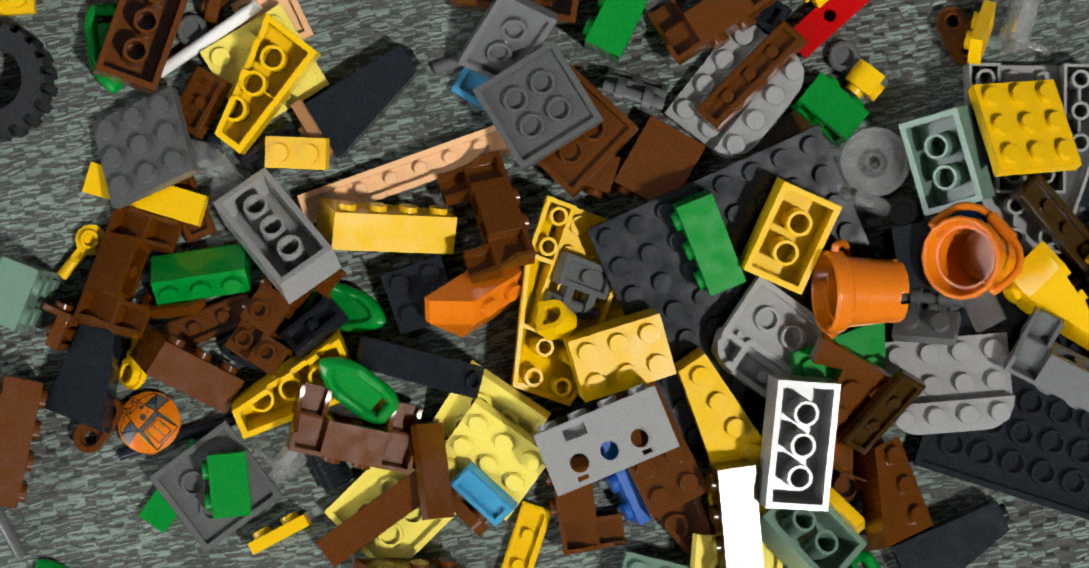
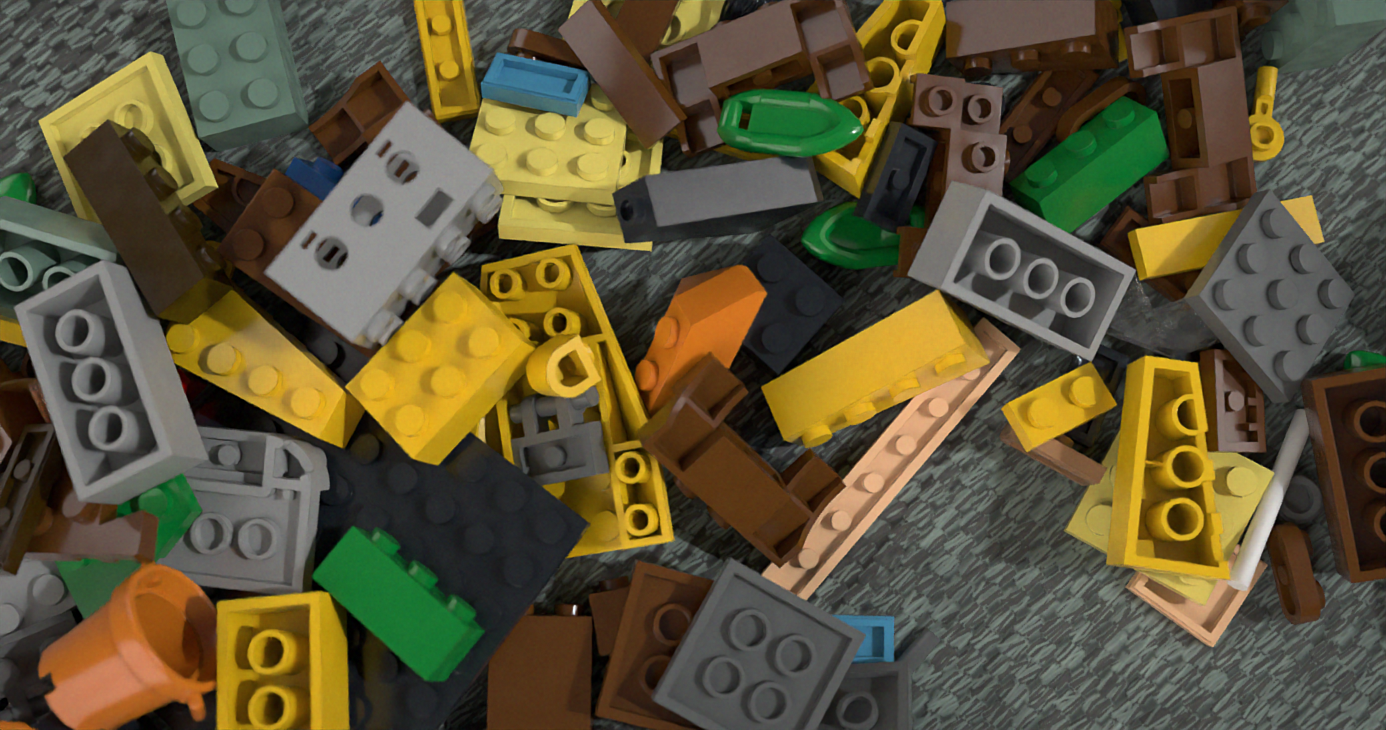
camera: 150 degrees right, 5 degrees down
(359, 100) = (1010, 534): black slope -> none

